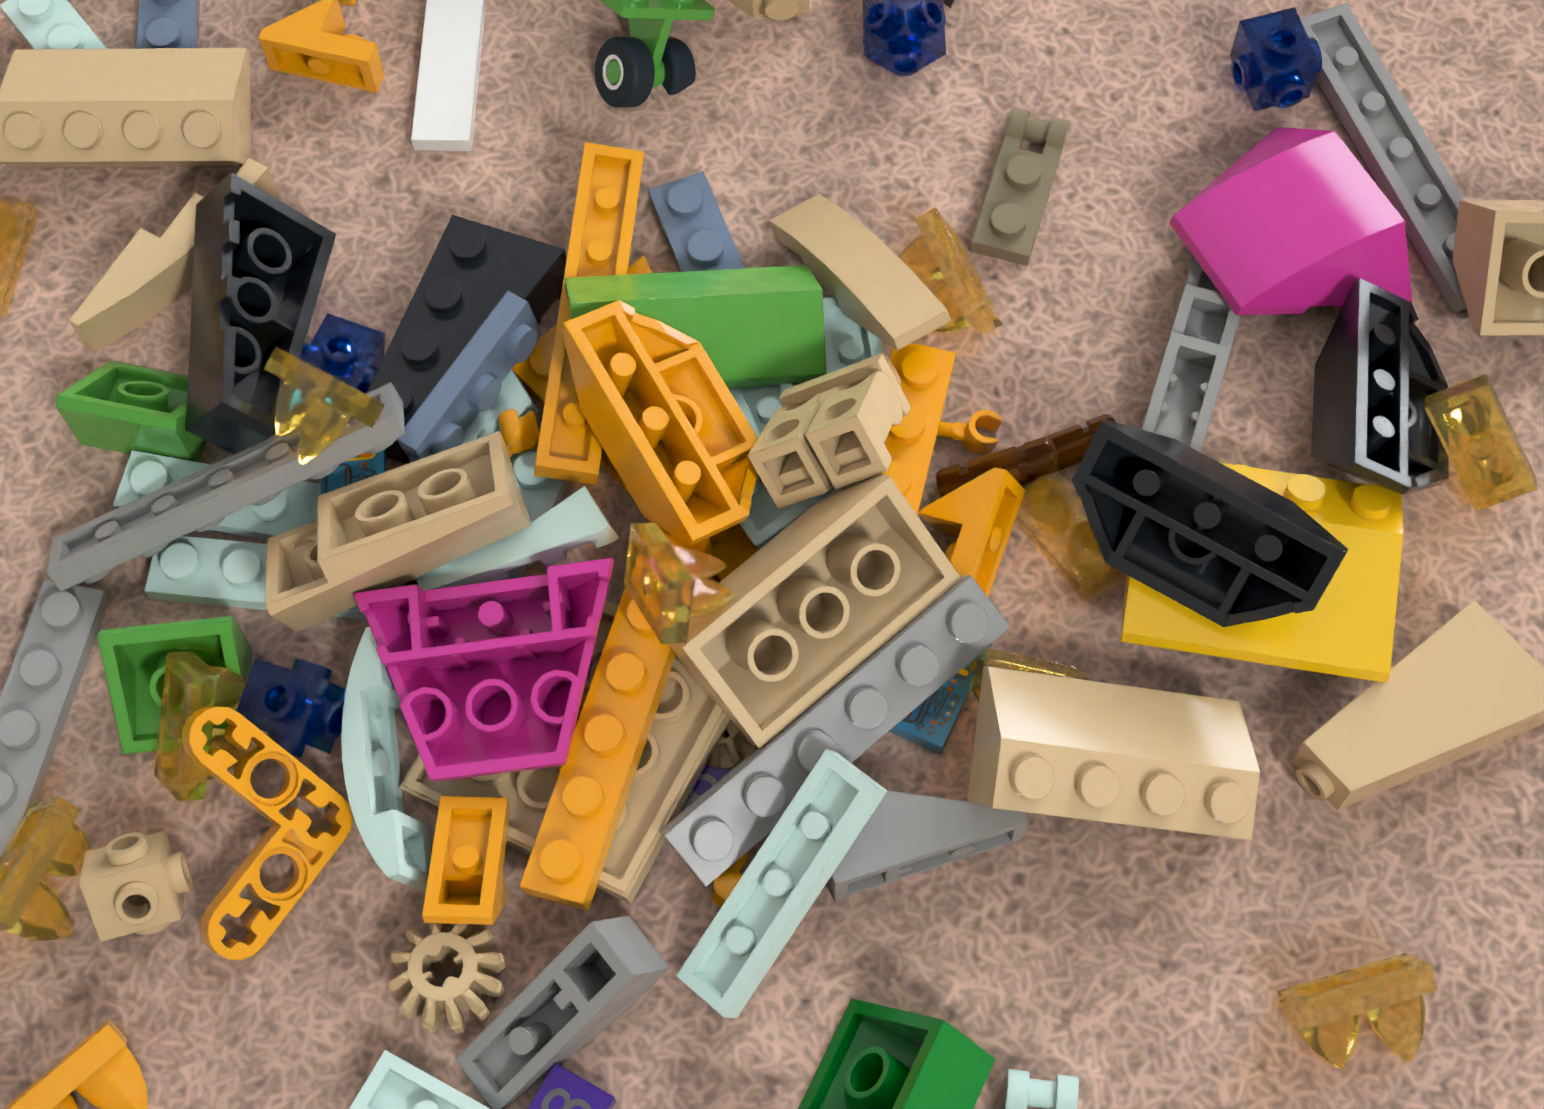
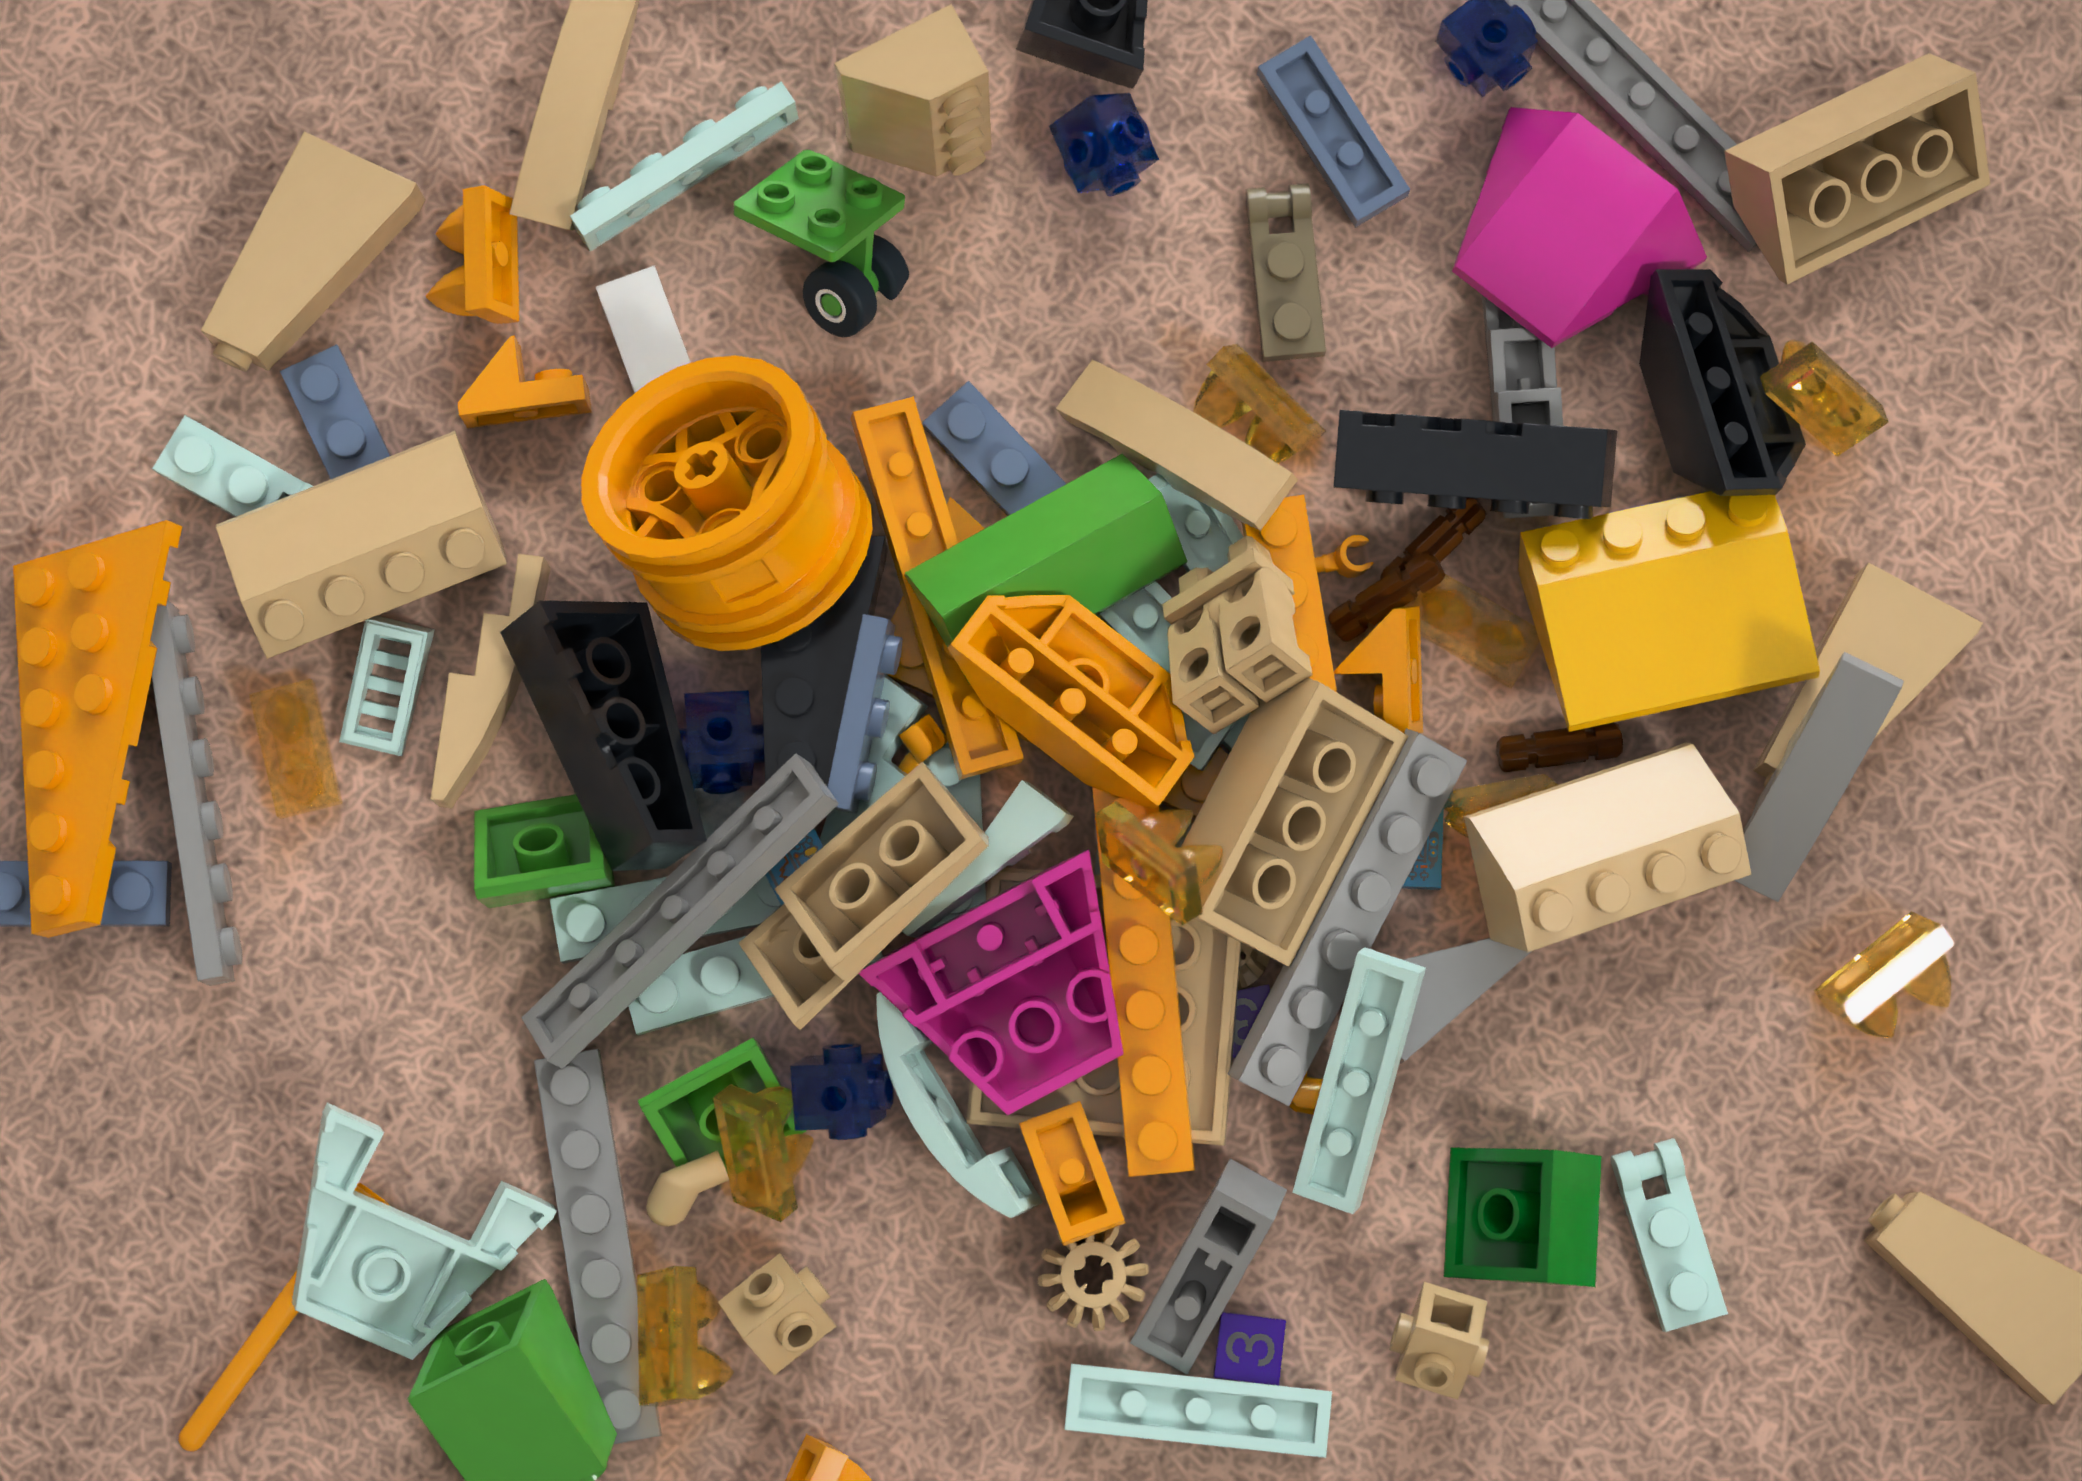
camera: 25 degrees left, 15 degrees up
(88, 204) = (414, 665): none -> light aqua slope
(107, 735) = (679, 1187): none -> tan arm
(285, 836) = (890, 1210): light orange beam -> none
(317, 403) = (763, 800): clear yellow tile -> none
(433, 159) = (727, 503): none -> light orange wheel
(1110, 90) = (1333, 131): none -> sand blue plate
(1111, 664) = (1559, 747): none -> reddish brown axle
(1123, 371) = (1475, 460): none -> black wedge
(1201, 529) = (1615, 609): black wedge -> none
(1349, 763) = (1815, 772): none -> light grey slope

